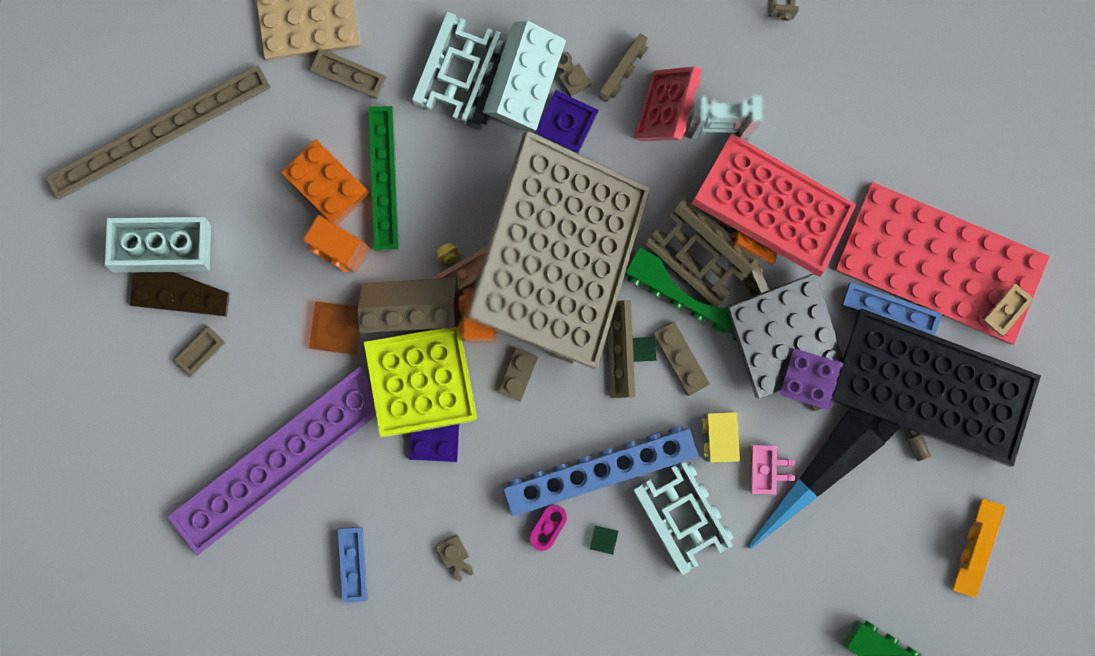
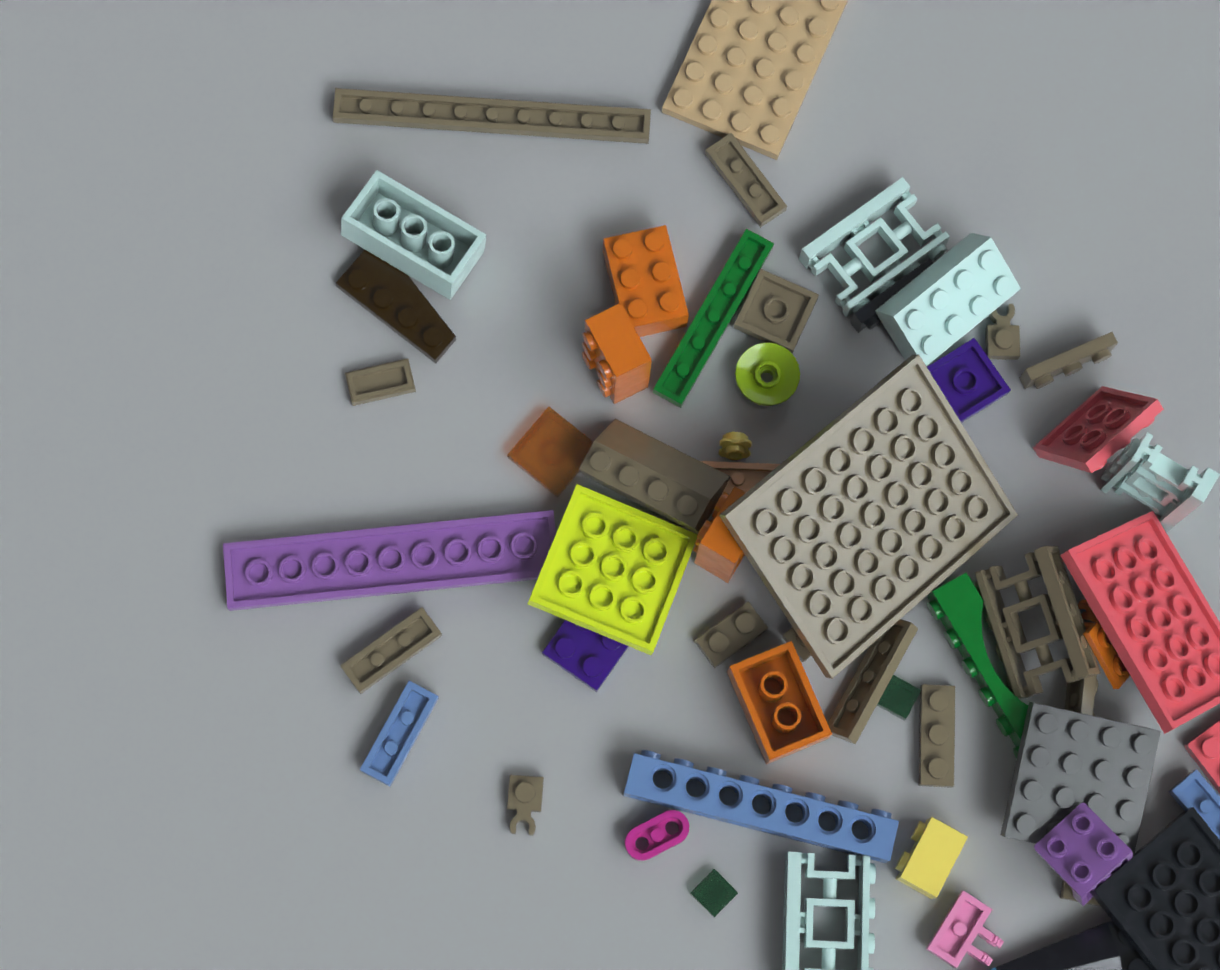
camera: 30 degrees right, 10 degrees down
(315, 516) = (391, 650): none -> dark tan plate
(420, 149) = (776, 310): none -> dark tan plate
(433, 184) = (767, 359): none -> lime dish
(573, 401) = (779, 702): none -> orange brick

